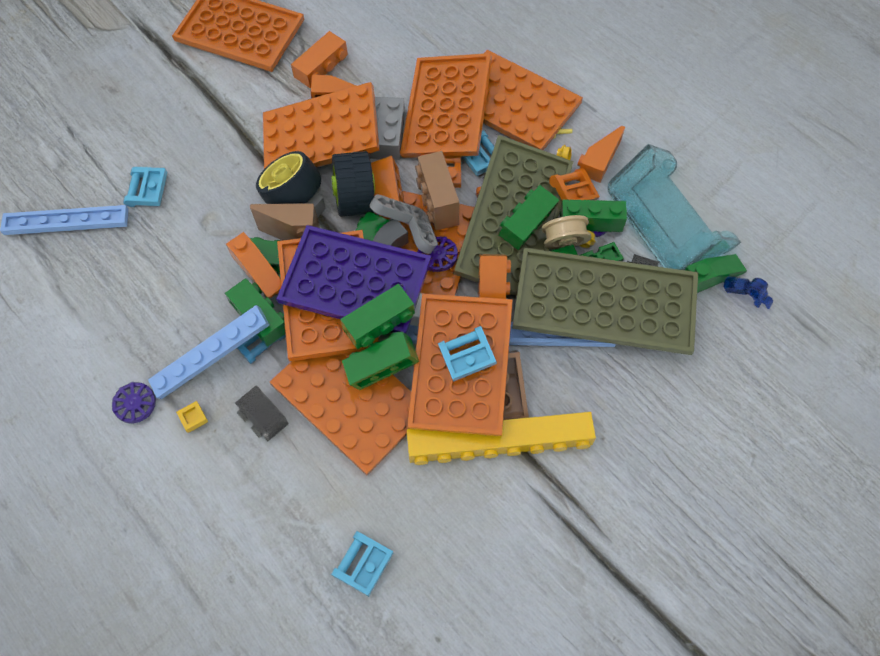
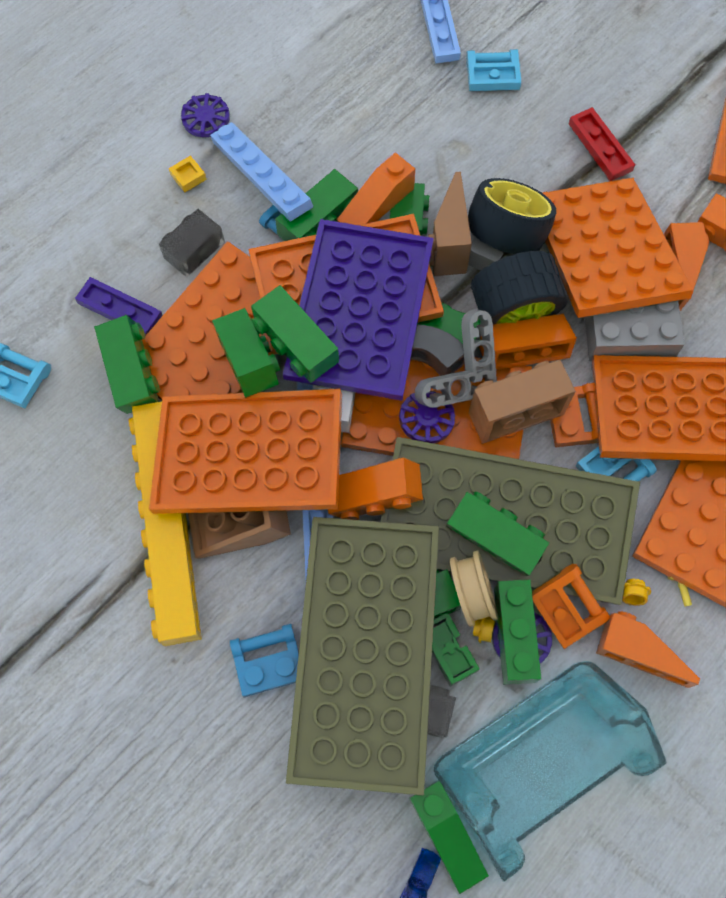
camera: 85 degrees right, 5 degrees up
(230, 127) = (601, 144): none -> red plate
(311, 474) = (115, 304): none -> dark purple plate
(372, 457) = (127, 363): none -> green brick
(470, 359) = (241, 454): medium azure plate -> none
(611, 371) = (268, 671): none -> dark azure plate

